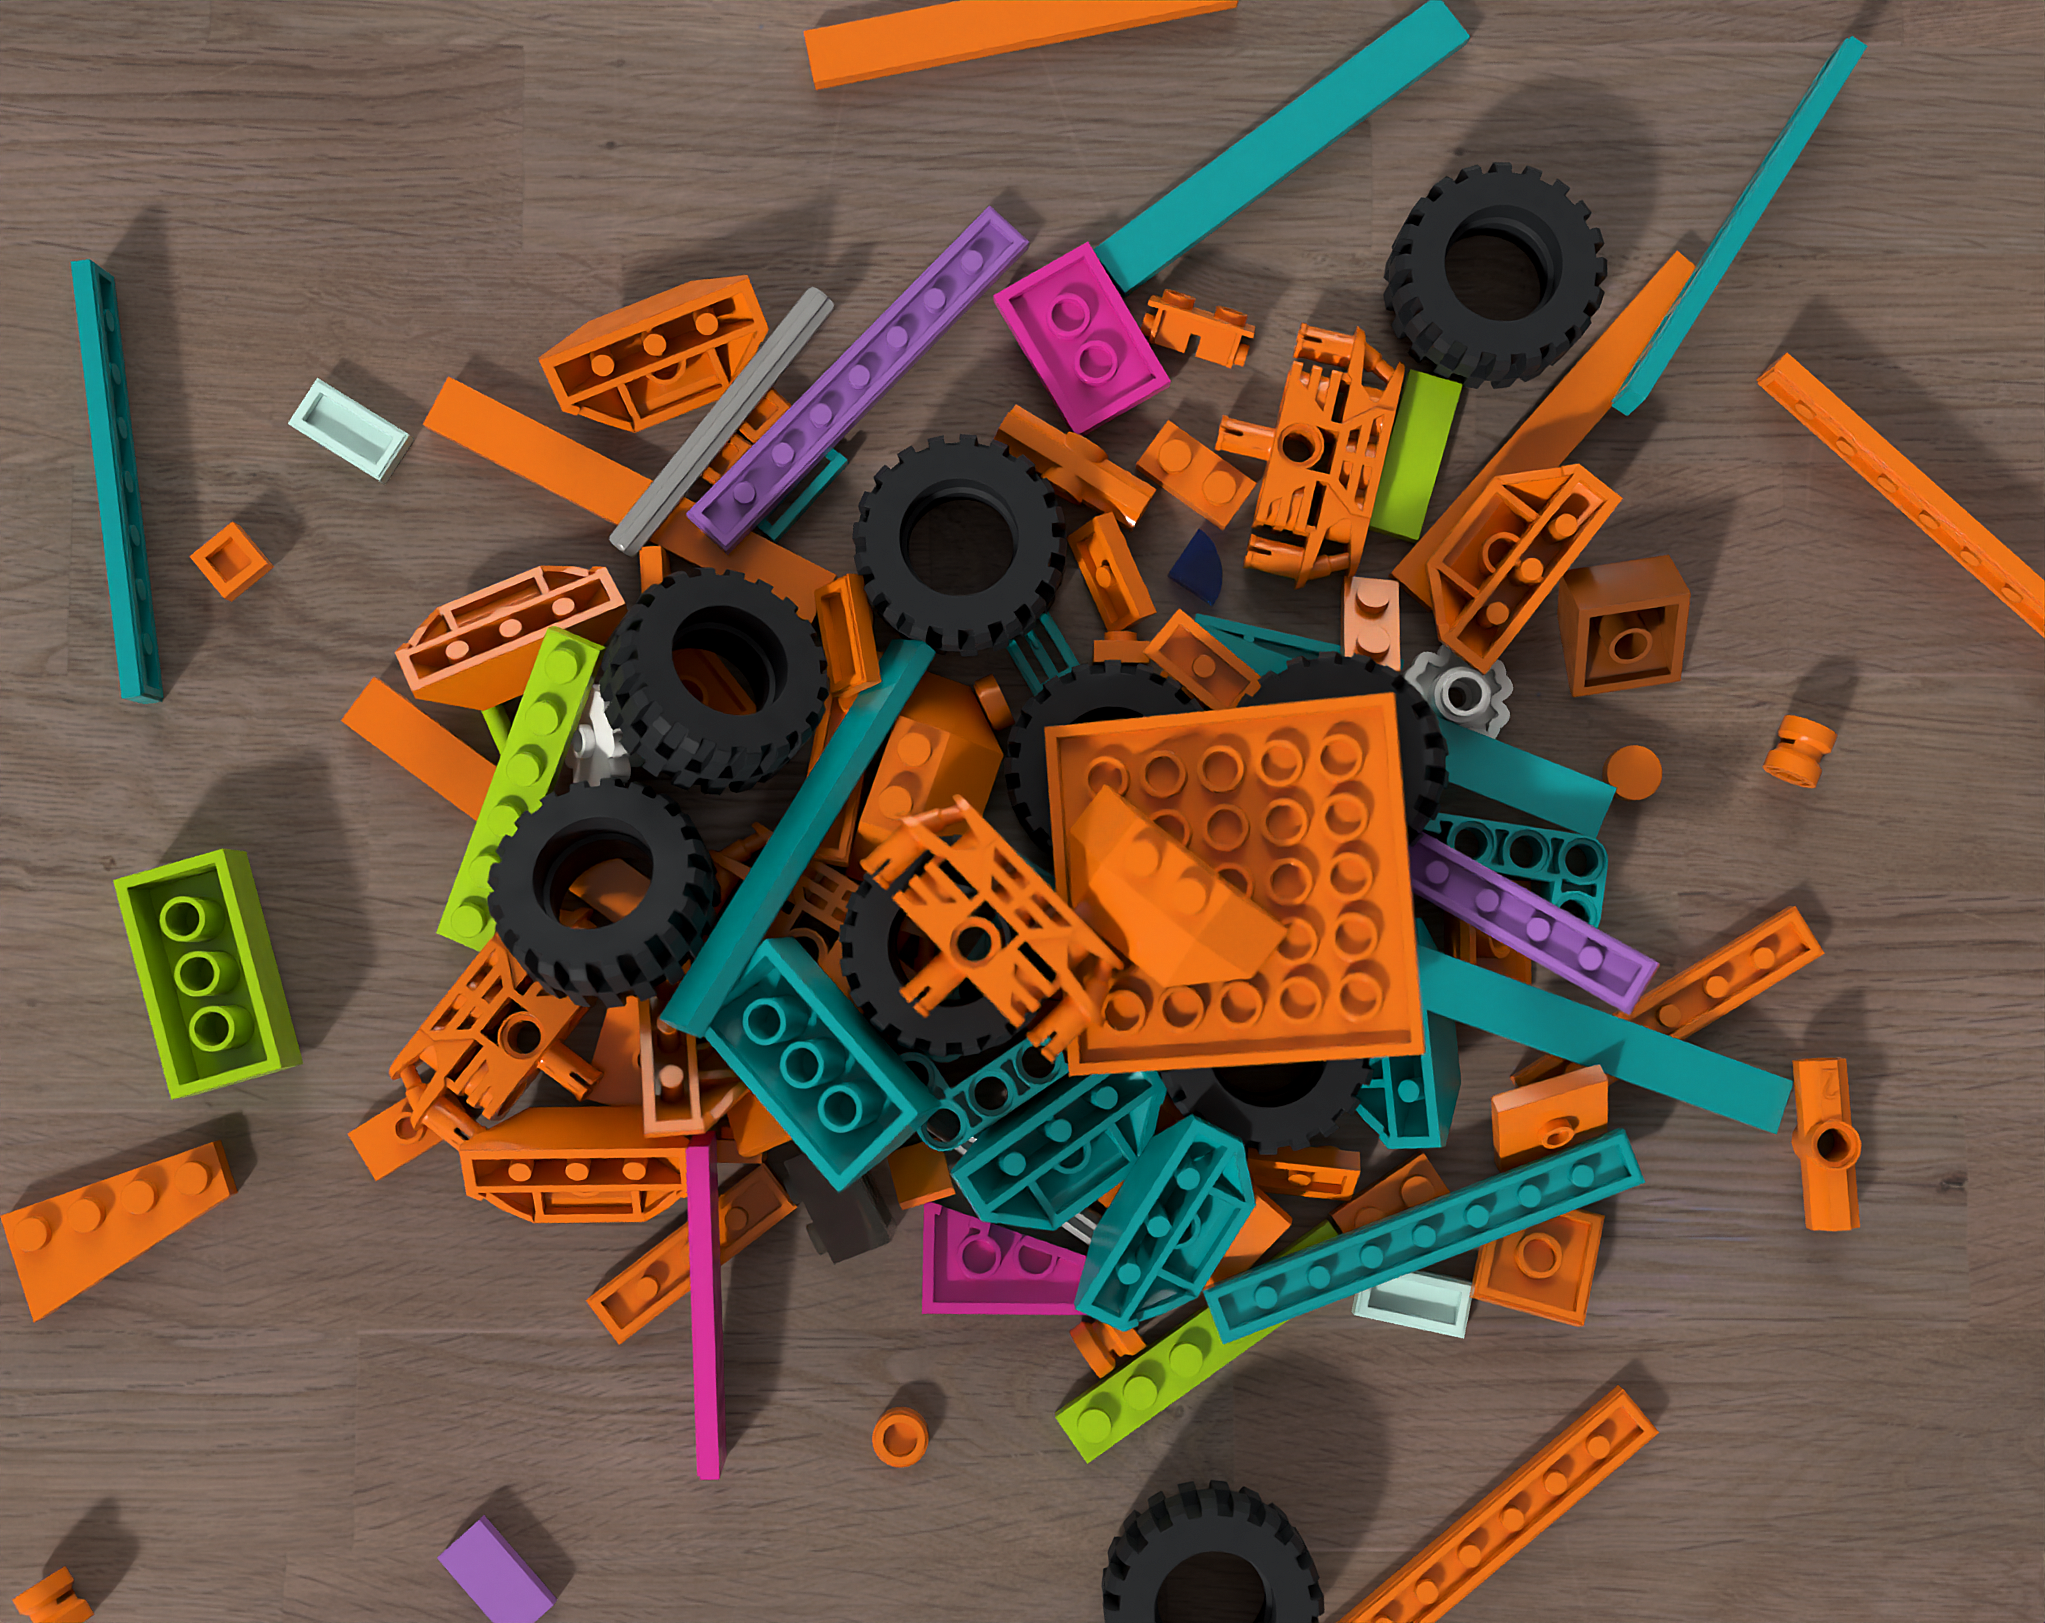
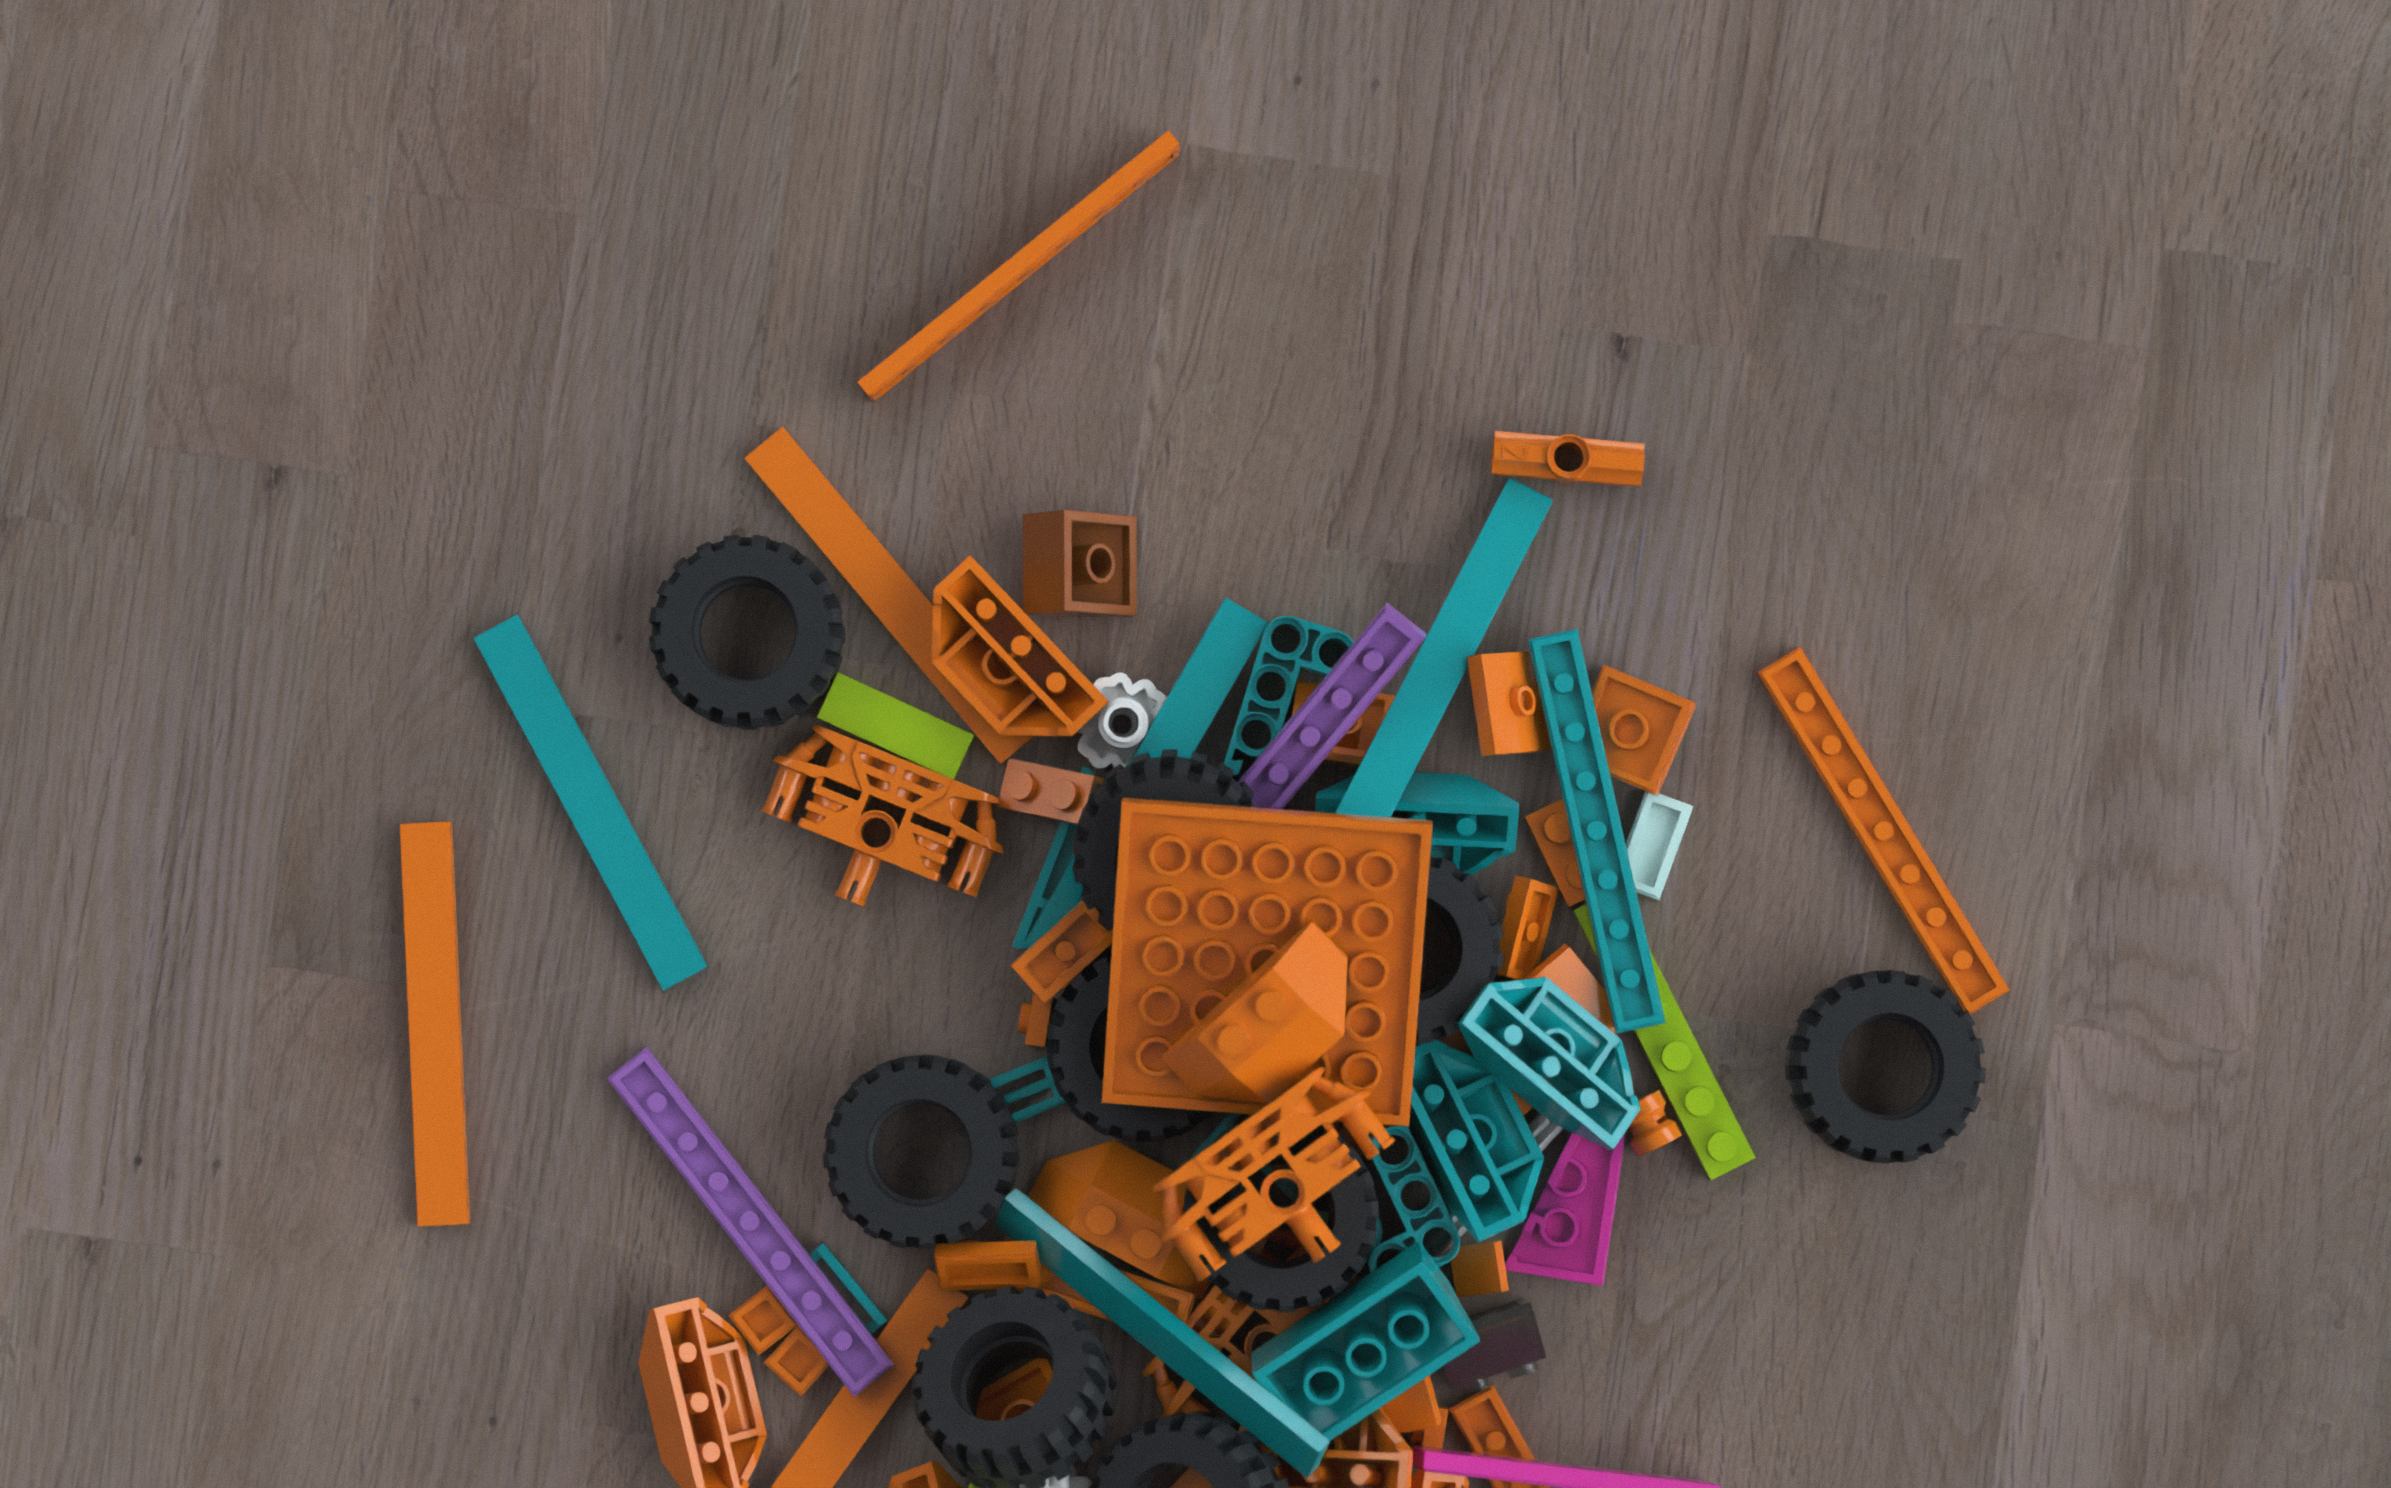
camera: 80 degrees left, 0 degrees up
(653, 565) = (903, 1433): orange tile -> none
(721, 422) = (773, 1352): light grey axle -> none
(900, 1437) = (1710, 1320): orange tile -> none
(993, 703) = (1066, 1142): orange tile -> none
(1076, 467) = (862, 1037): orange piece -> none
(1081, 340) = (745, 1012): dark pink plate -> none
(1111, 573) = (964, 1017): orange plate -> none
(1195, 475) = (883, 926): orange plate -> none
(1199, 568) = (969, 935): clear blue tile -> none
(1218, 331) = (737, 918): orange hinge -> none
(1633, 771) = (1213, 574): orange tile -> none
(1709, 986) = (1414, 535): orange tile -> none
(1737, 226) = (733, 404): teal tile -> none
(1800, 751) = (1216, 424): orange wheel -> none

